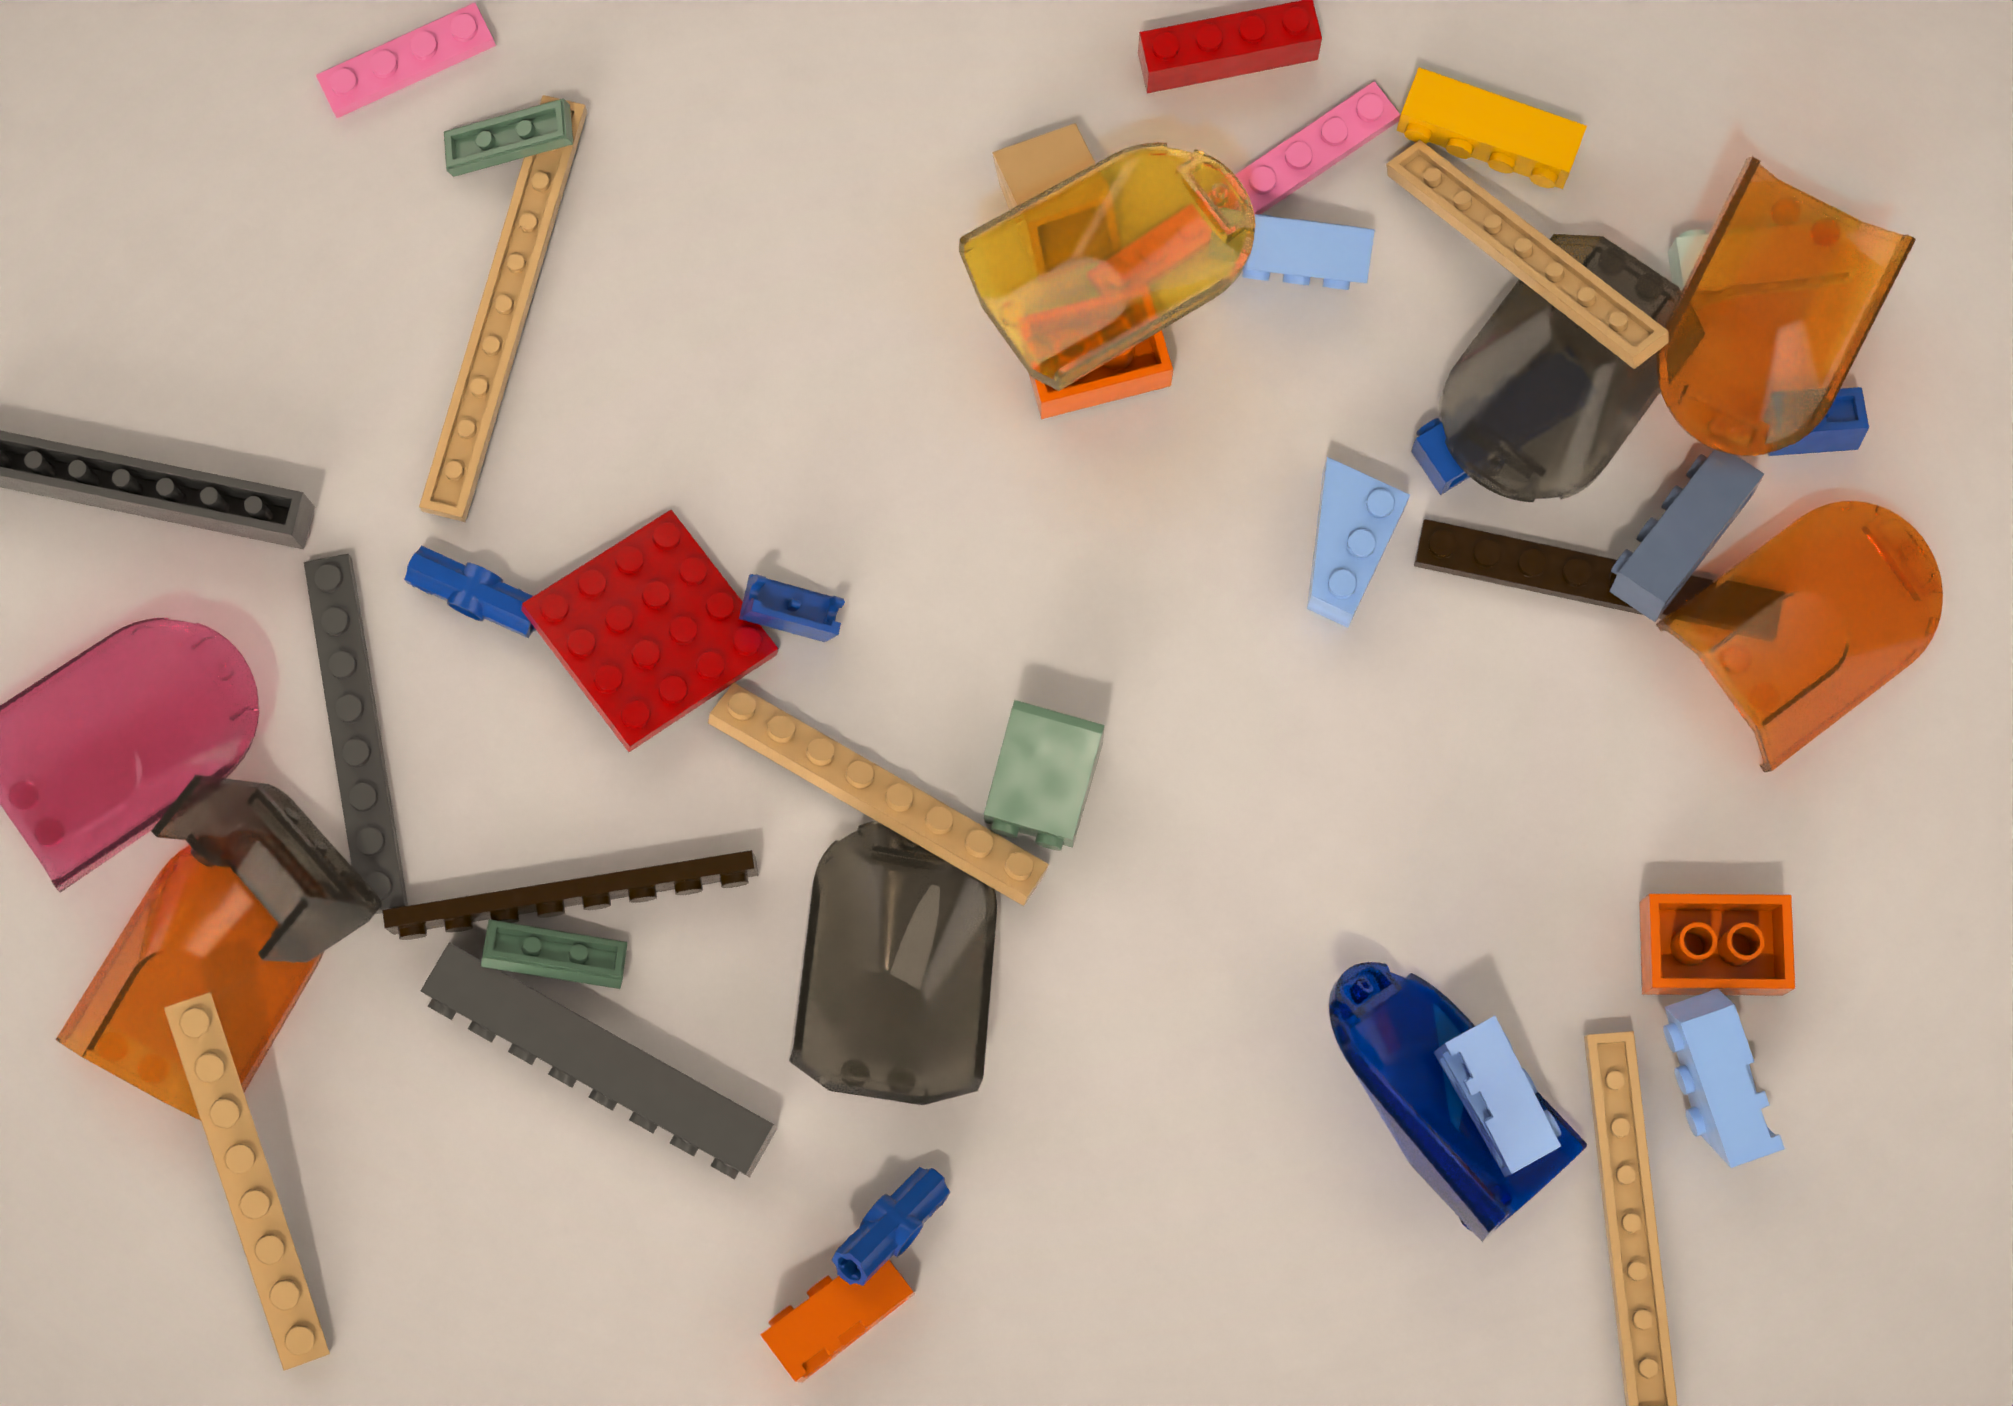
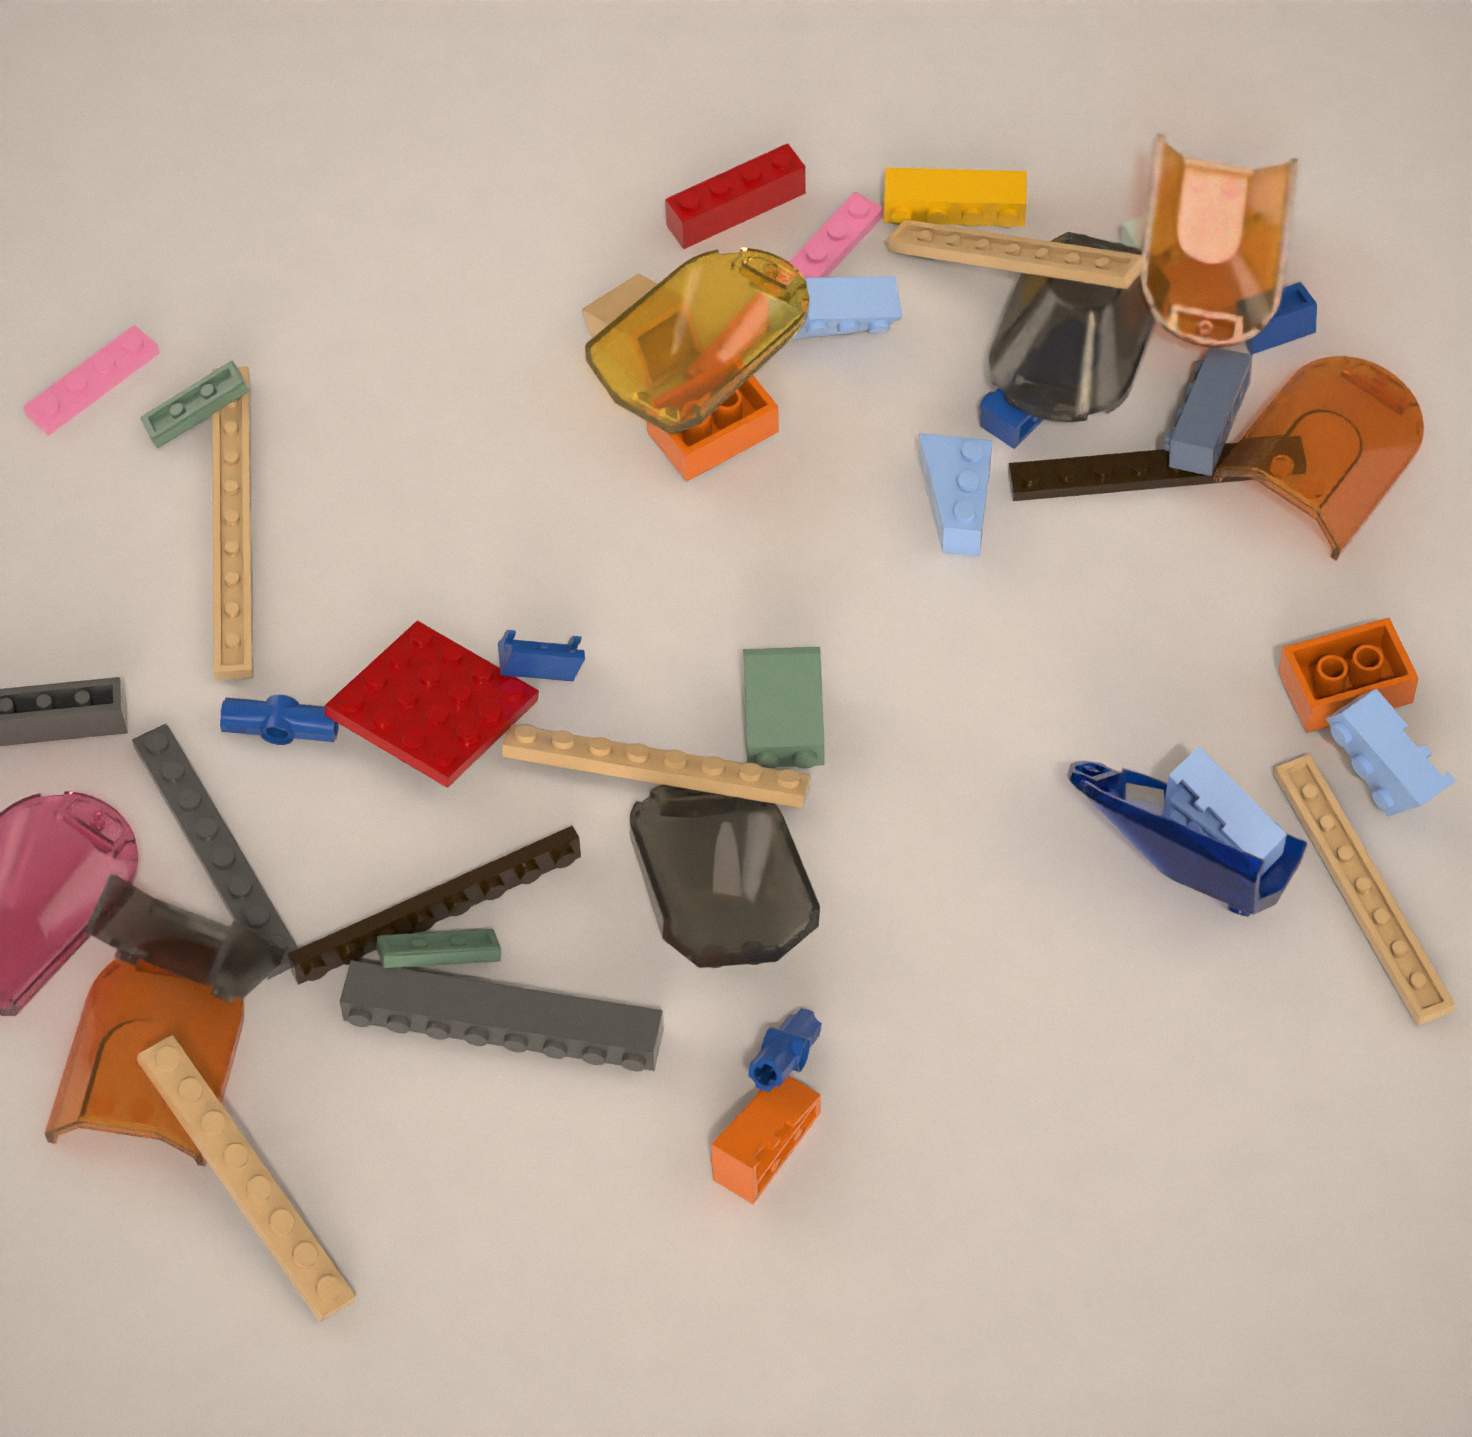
camera: 20 degrees left, 20 degrees down
(1415, 1035) = (1145, 797): none -> light grey tile

